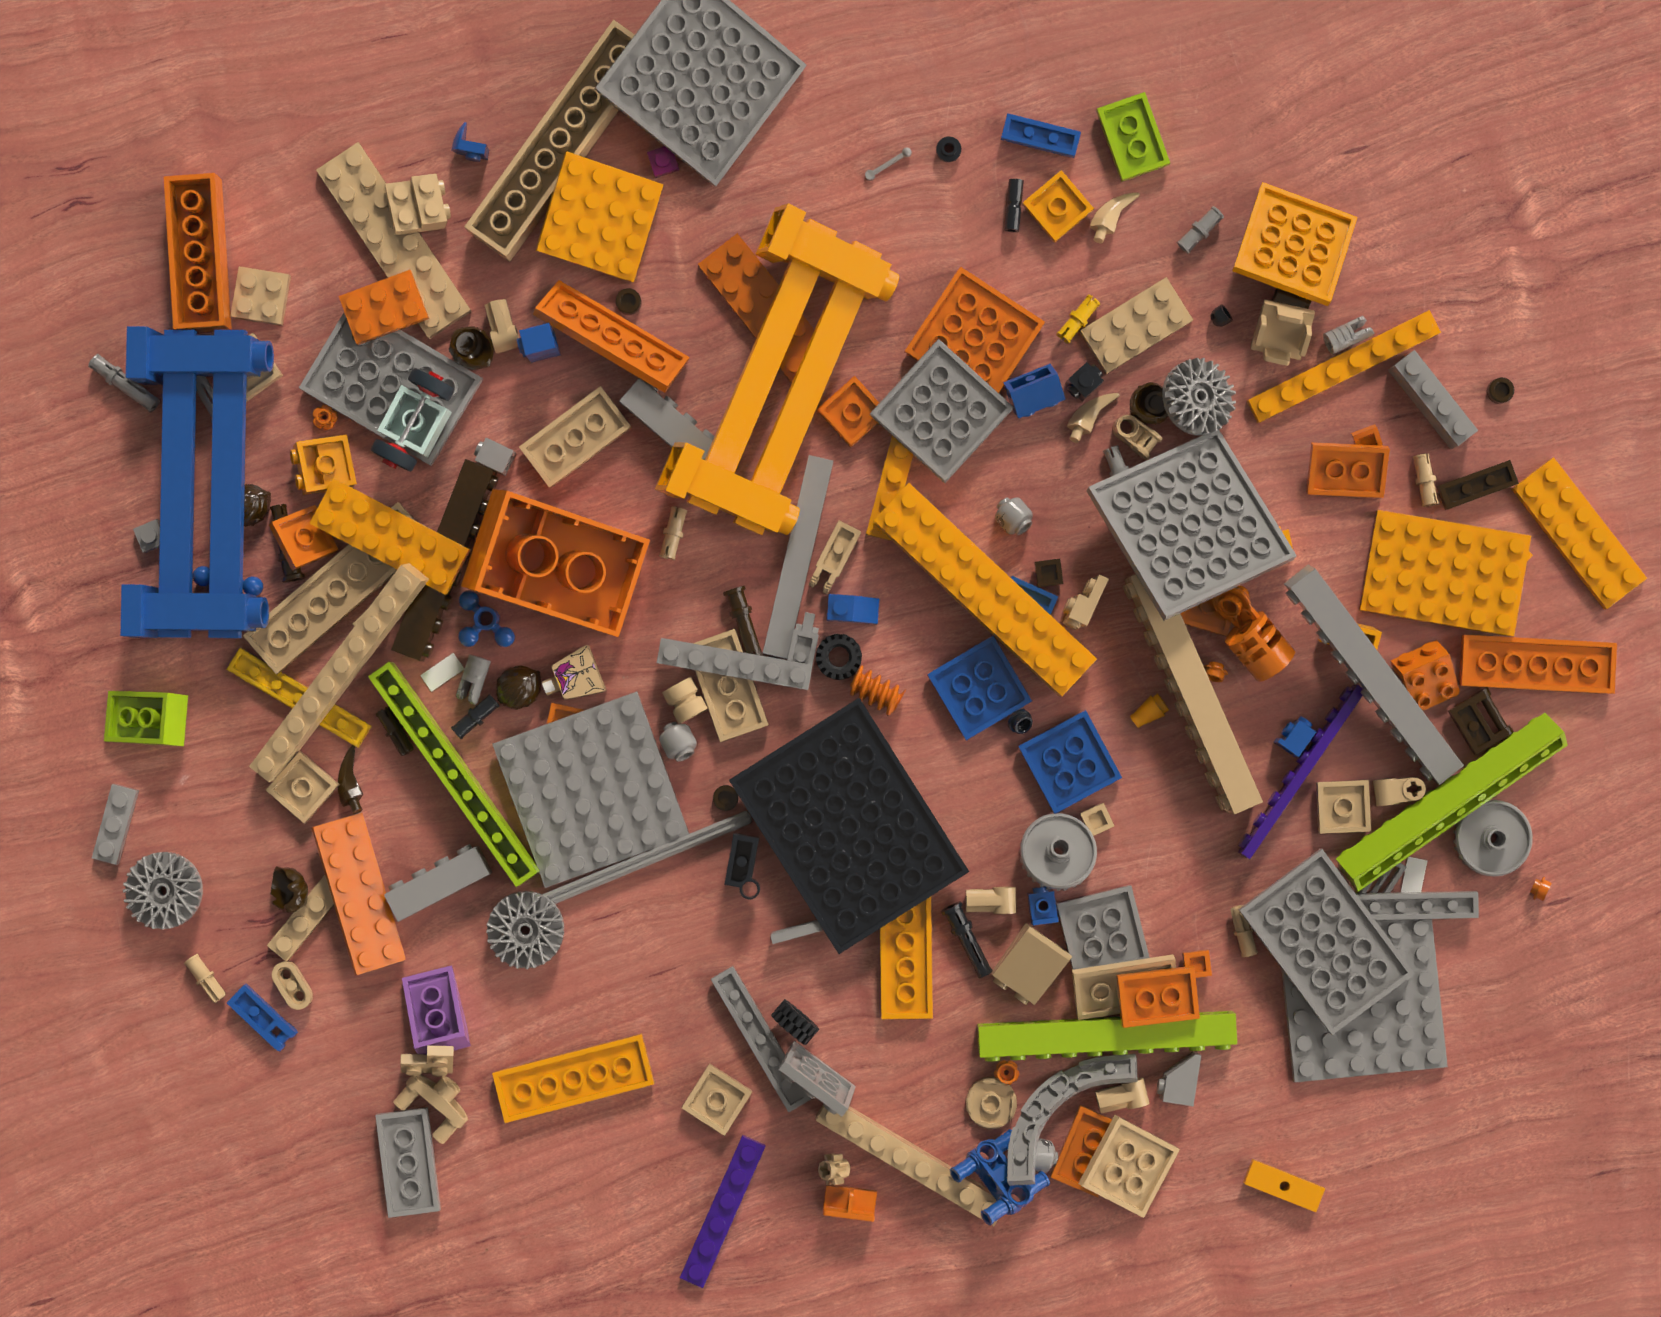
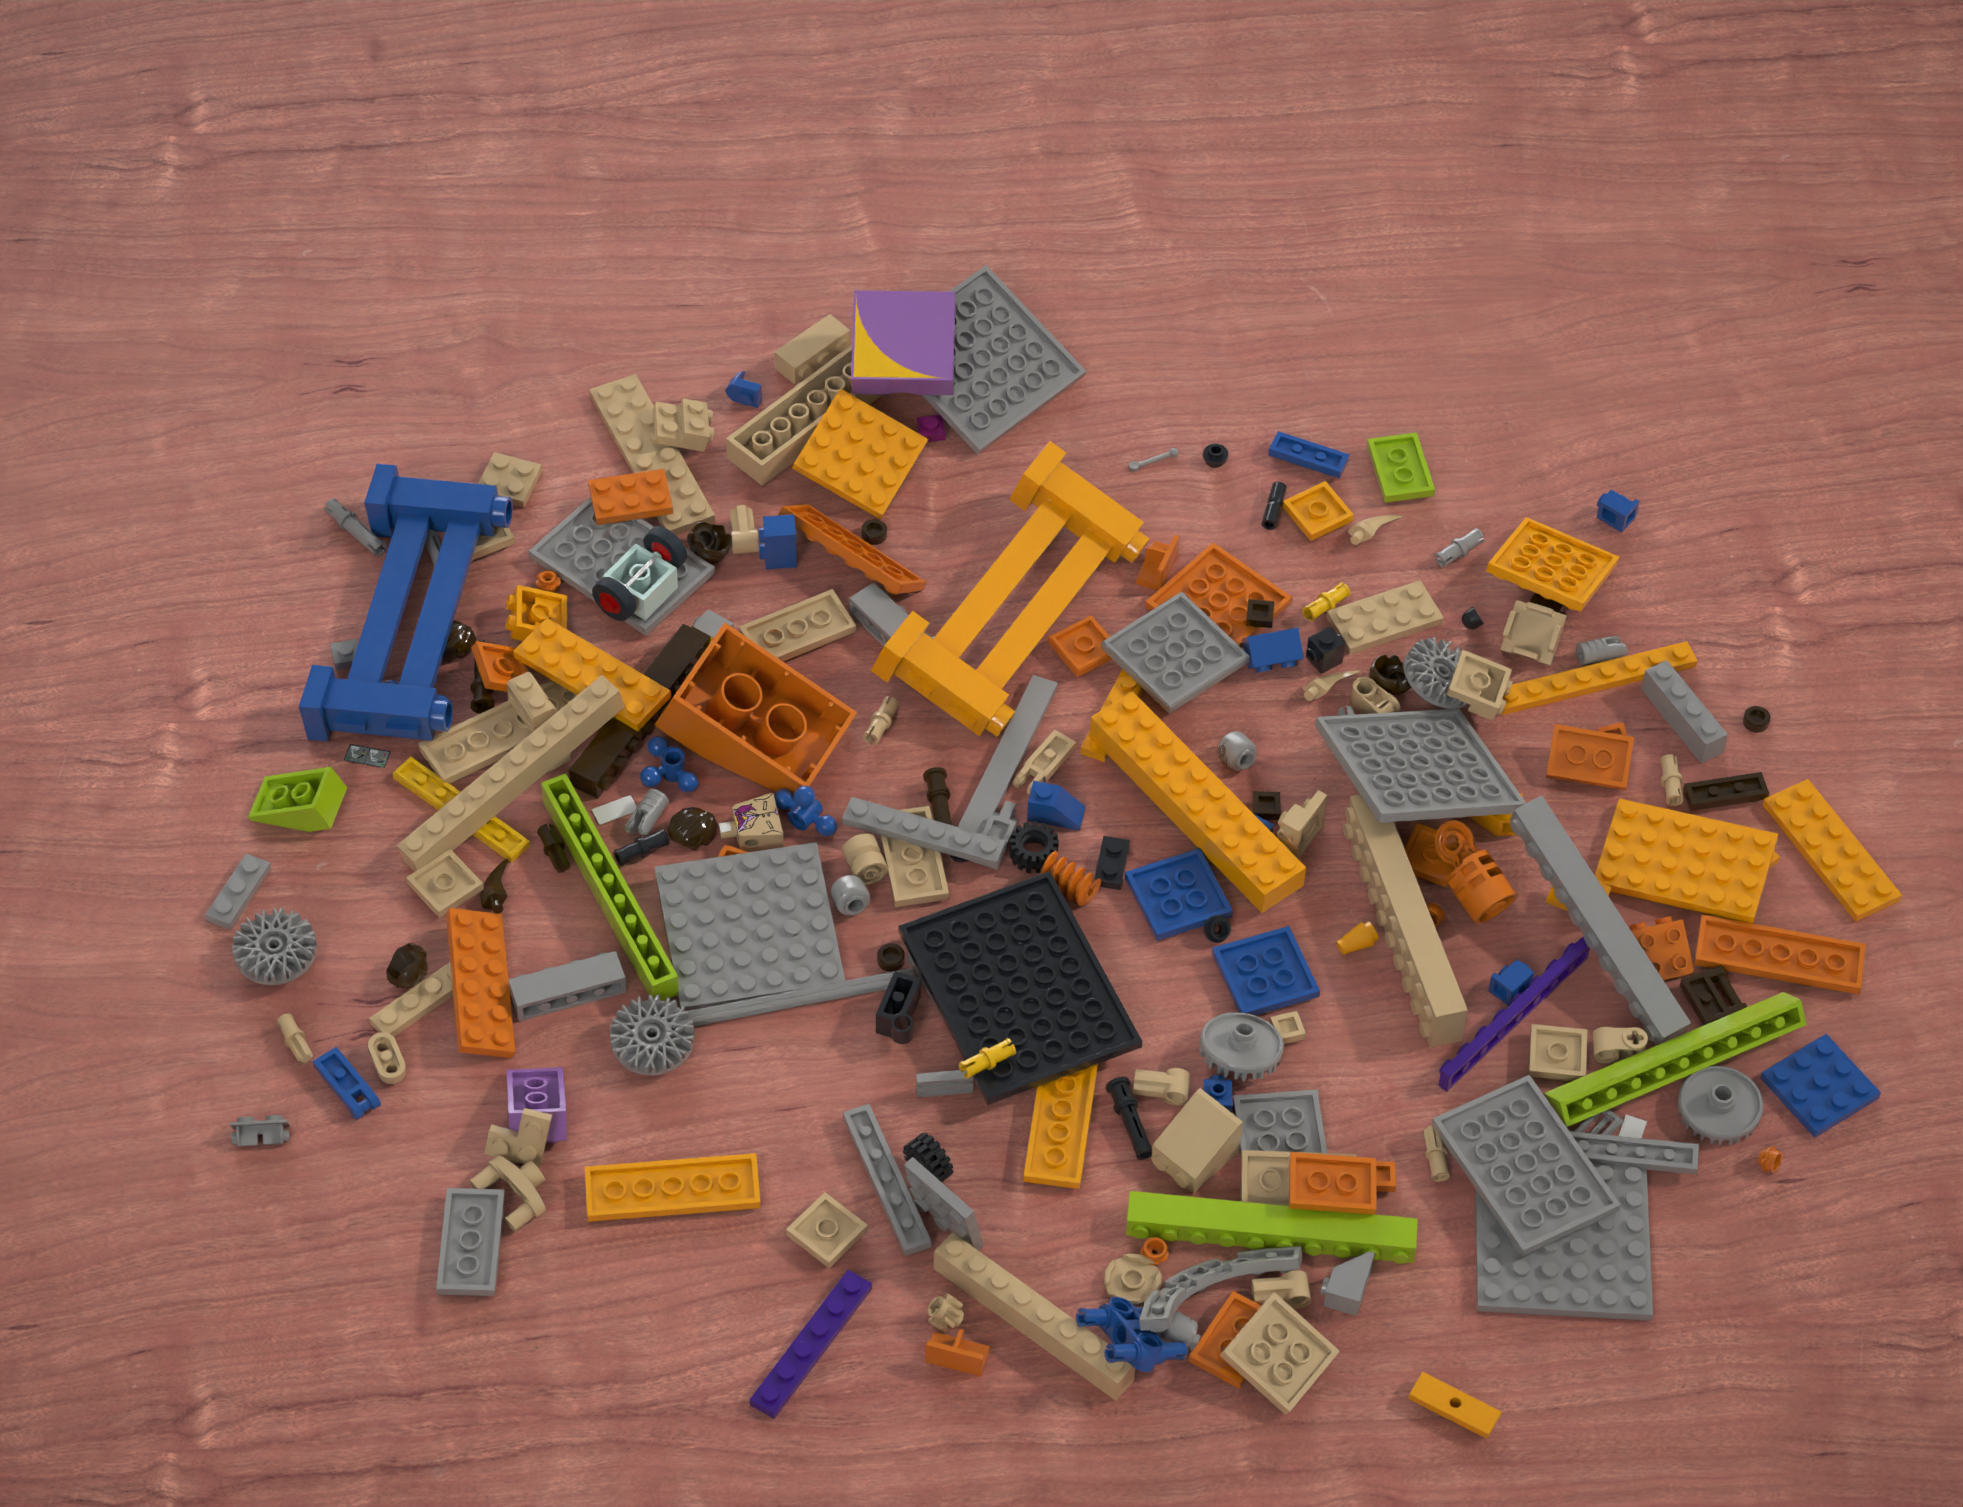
camera: 10 degrees right, 35 degrees down
(185, 1080) = (271, 1129): none -> light grey hinge
(197, 252) = (459, 423): orange brick -> none
(198, 648) = (367, 755): none -> light grey sticker
(340, 582) = (529, 701): none -> tan brick
(529, 82) = (812, 349): none -> tan brick
(620, 88) = (903, 342): none -> medium lavender tile
(620, 653) = (805, 810): none -> blue piece
(750, 292) = (989, 531): orange plate -> none
(833, 918) = (987, 1058): none -> yellow pin
(909, 298) = (1158, 564): none -> orange panel
(913, 659) = (1112, 862): none -> black plate
(1017, 354) = (1260, 613): none -> dark brown plate
(1238, 410) = (1480, 684): none -> tan plate
(1350, 157) = (1617, 510): none -> blue brick
(1581, 799) = (1820, 1085): none -> blue plate

